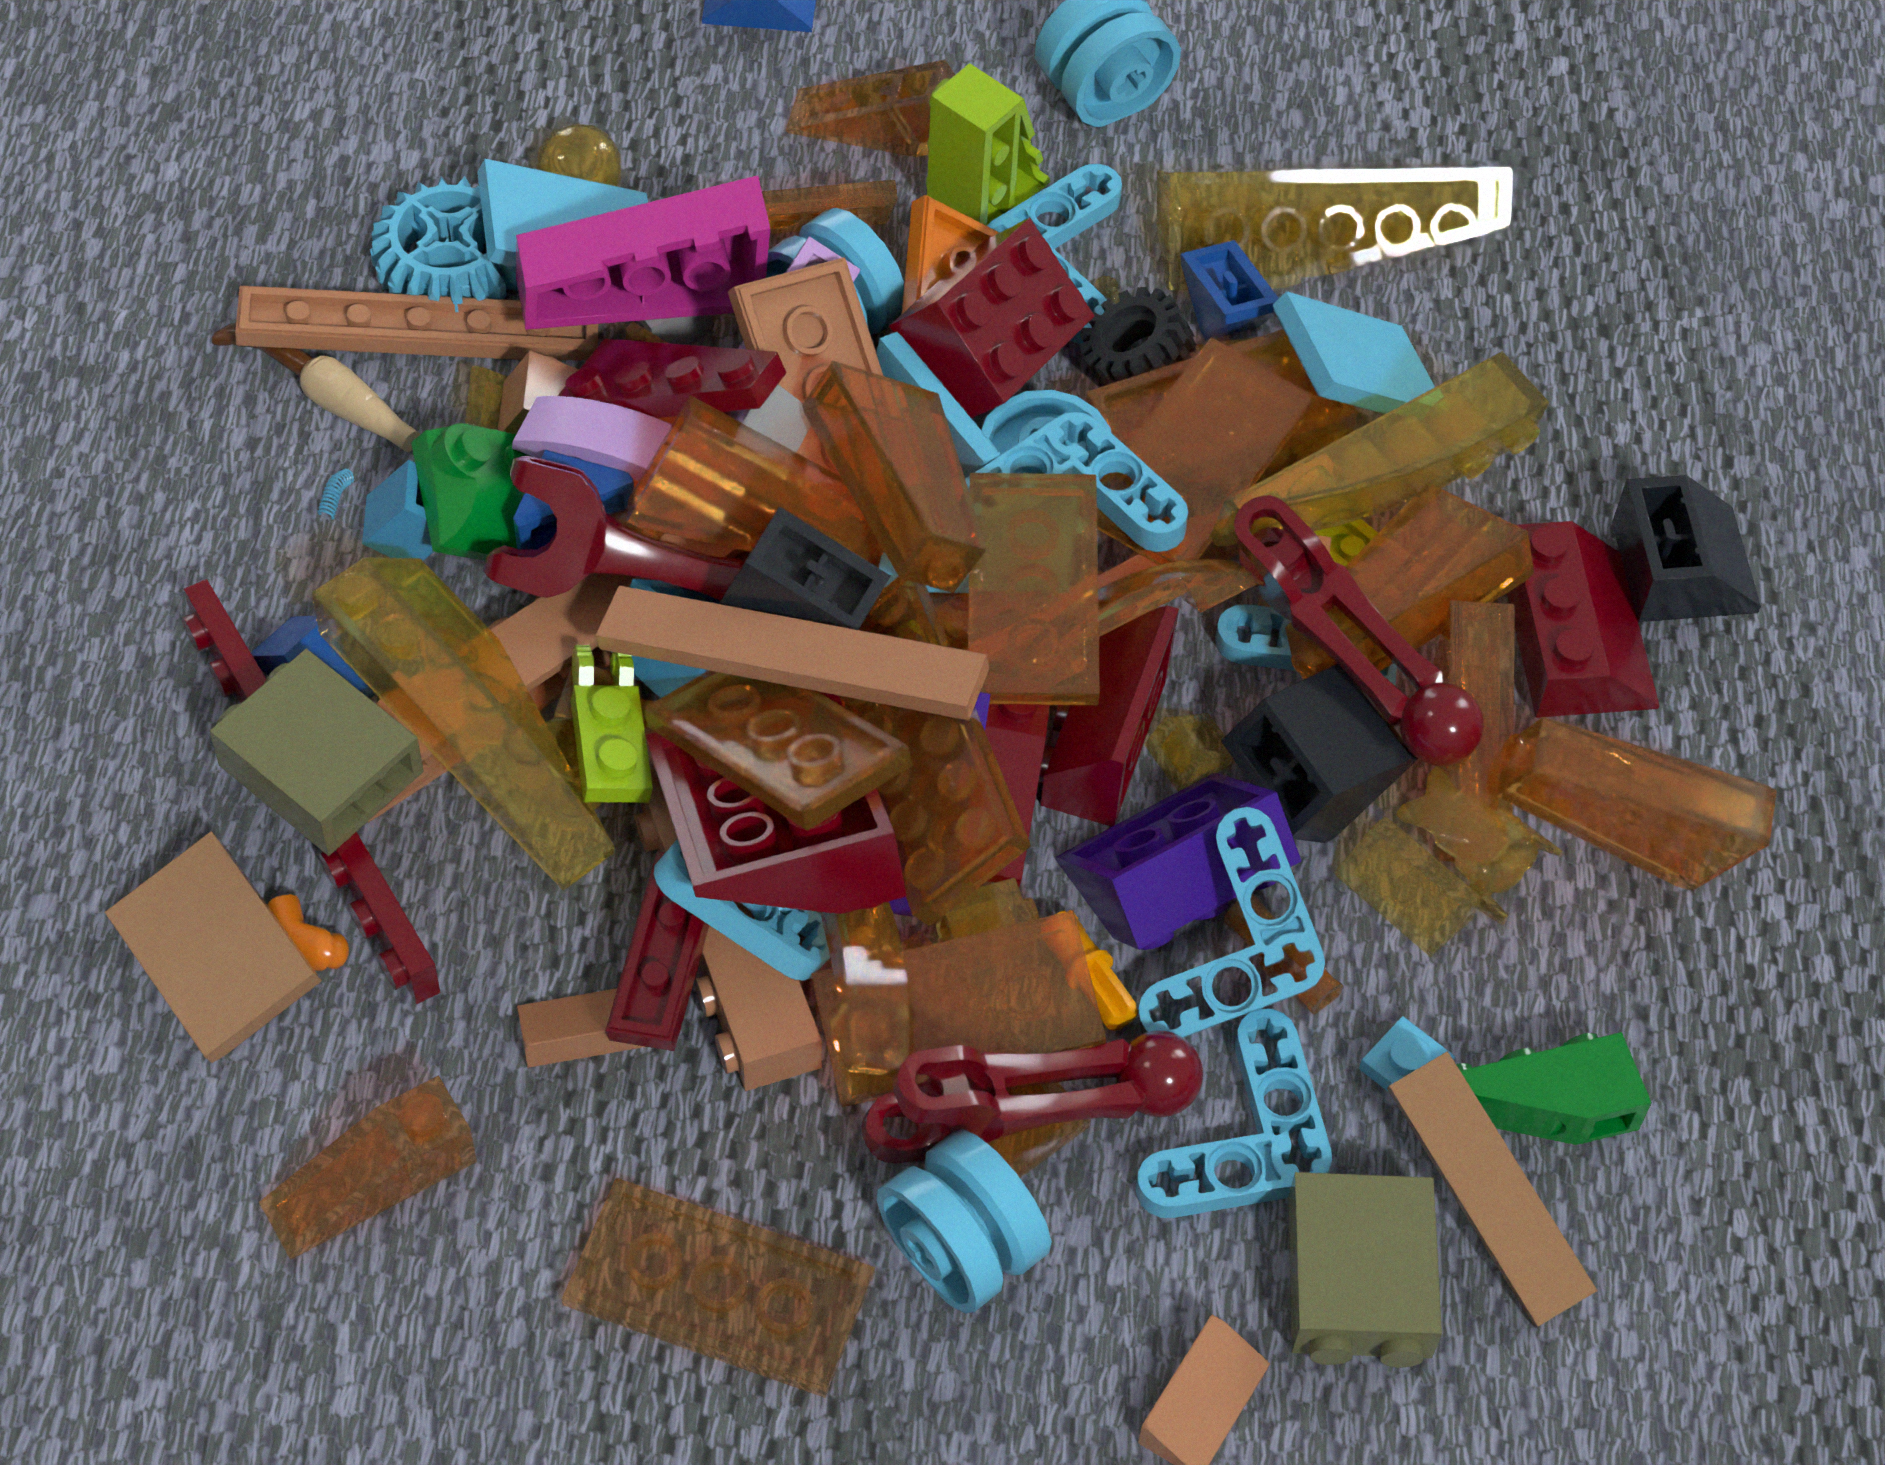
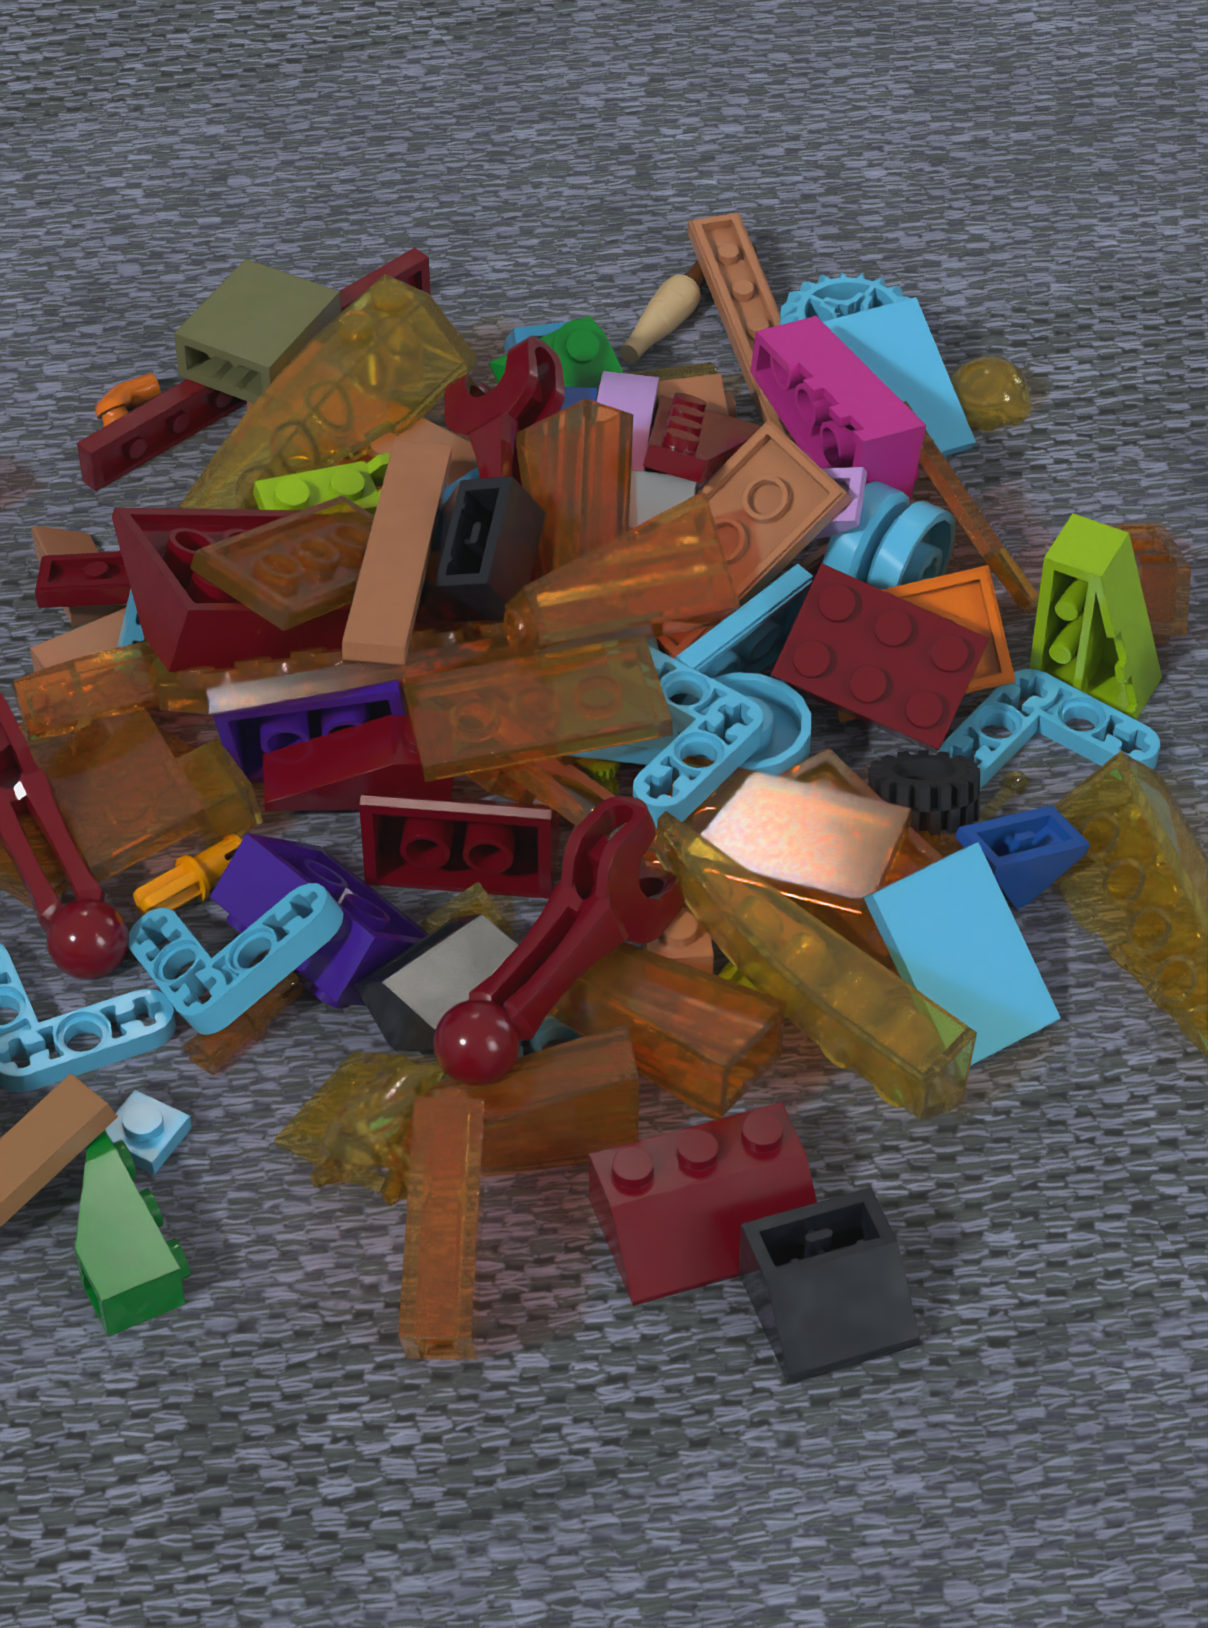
camera: 80 degrees right, 10 degrees down
(212, 947) = (97, 352): medium nougat tile -> none

